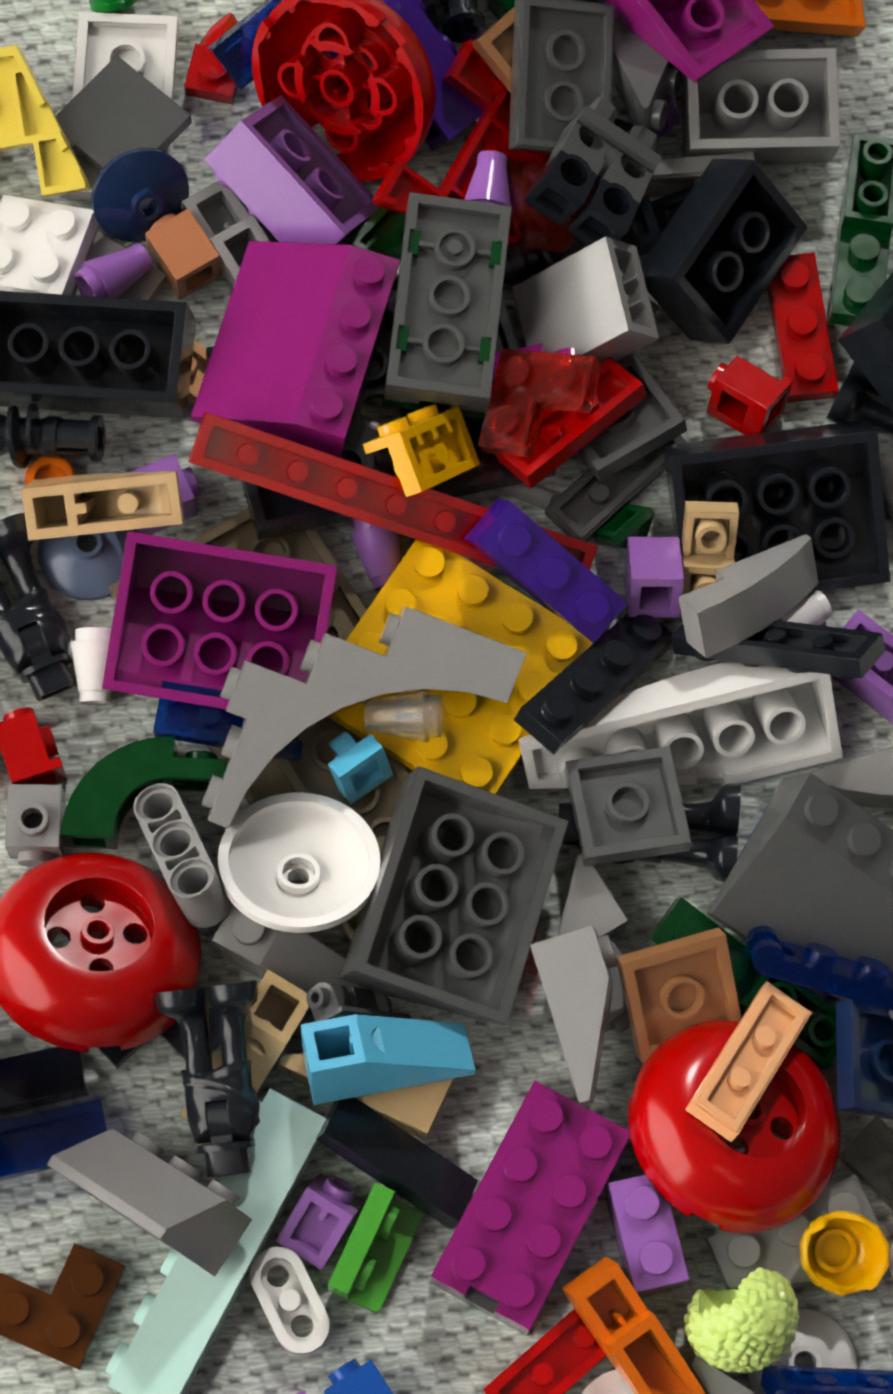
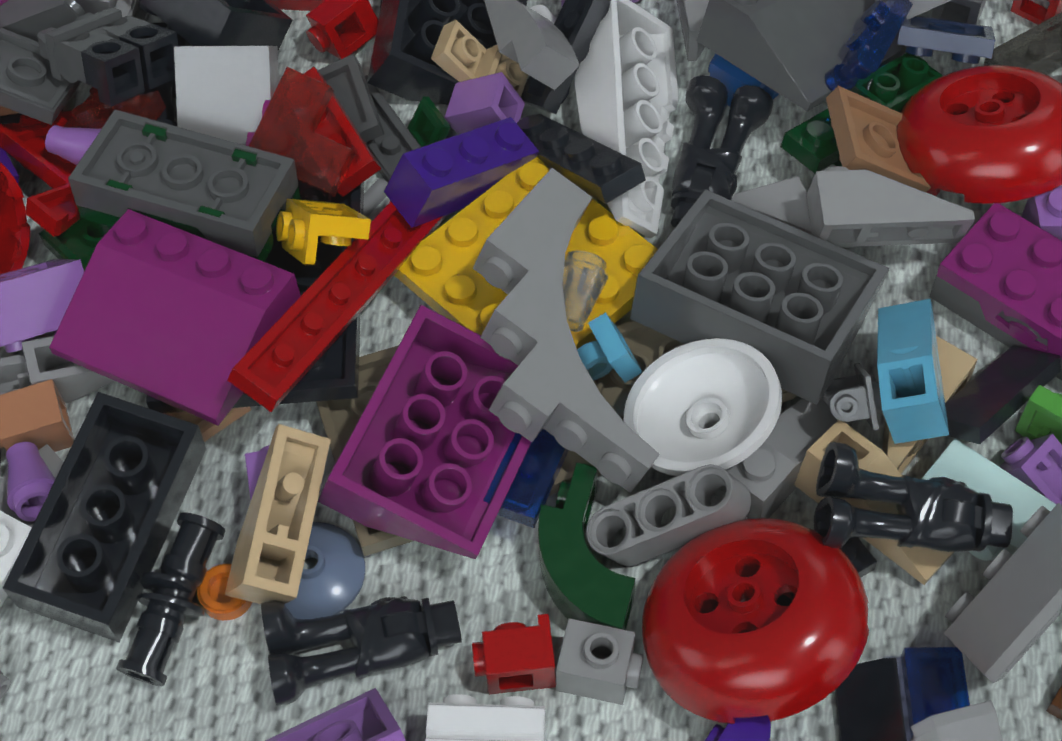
camera: 70 degrees left, 15 degrees down
(89, 661) = (437, 577): white cone -> none
(378, 551) = (389, 314): medium lavender cone -> none
(627, 806) = (695, 153): dark grey plate -> none
(748, 1061) = (953, 93): light nougat tile -> none

